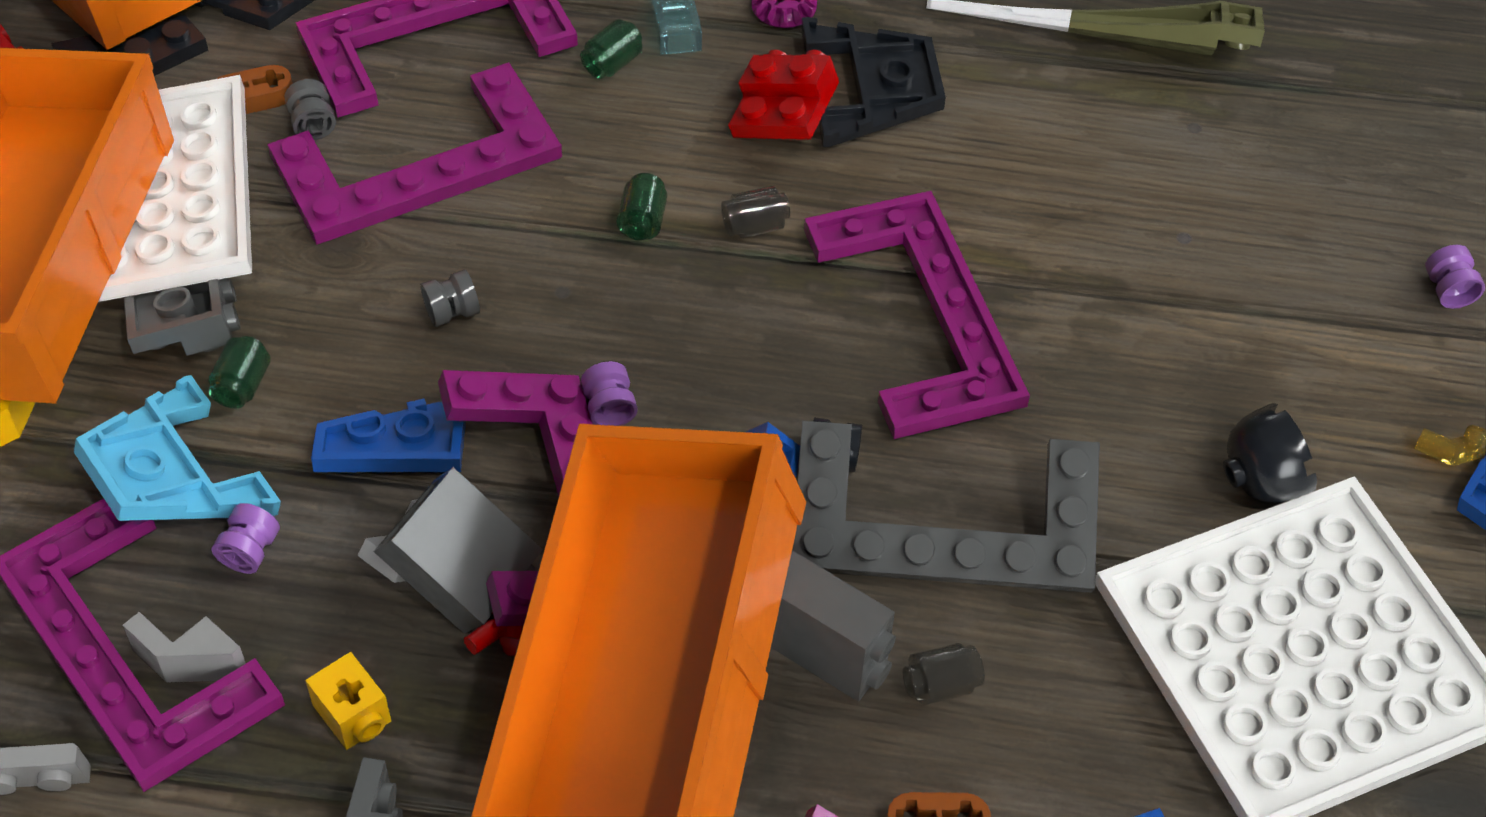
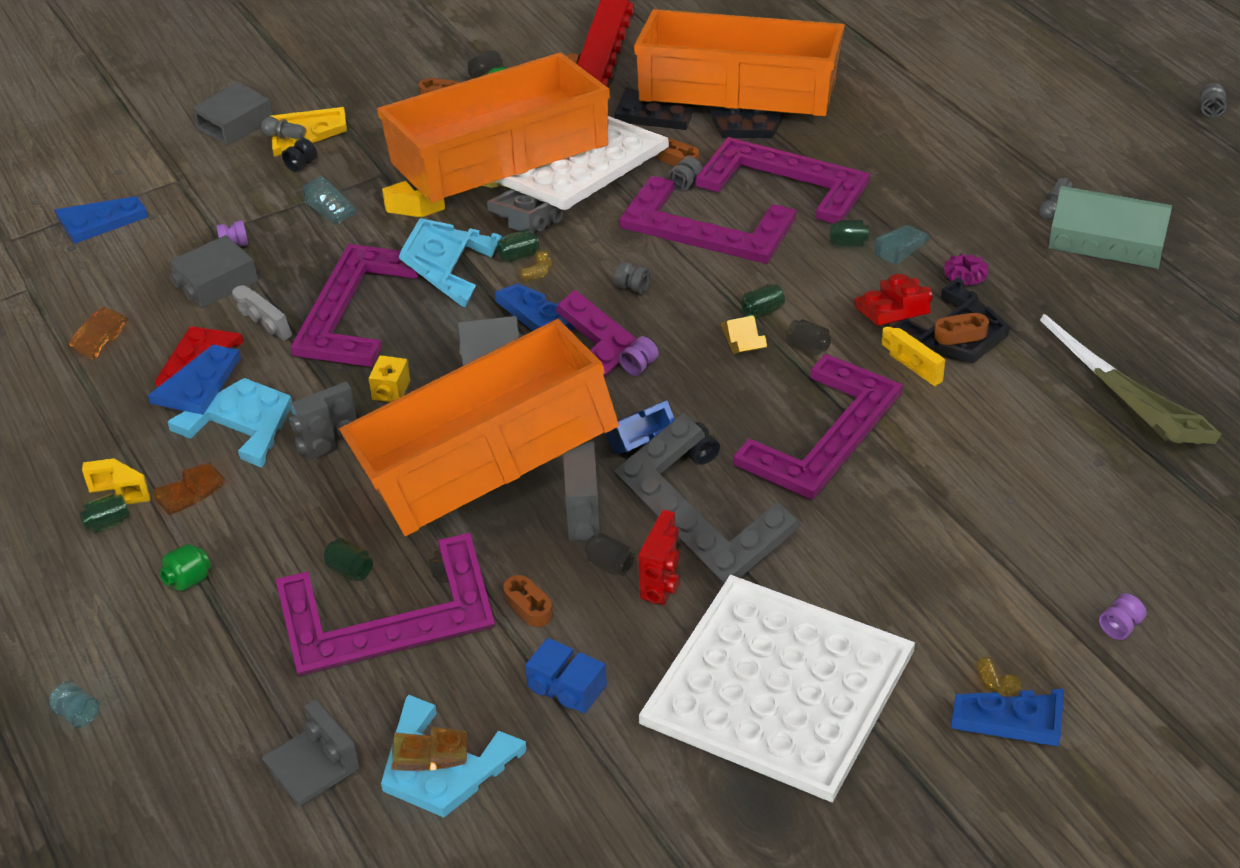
camera: 55 degrees right, 10 degrees down
(197, 655) = (364, 322): light grey slope -> none
(244, 541) = (434, 302): medium lavender wheel -> none
(304, 378) = (539, 269): none -> clear yellow arm
(675, 271) = (743, 335): none -> yellow slope
(886, 146) = (914, 355): none -> yellow hinge
(894, 73) = (961, 328): none -> dark orange beam
(1028, 627) = (659, 561): none -> red plate
(1268, 457) = (878, 596): black cylinder -> none

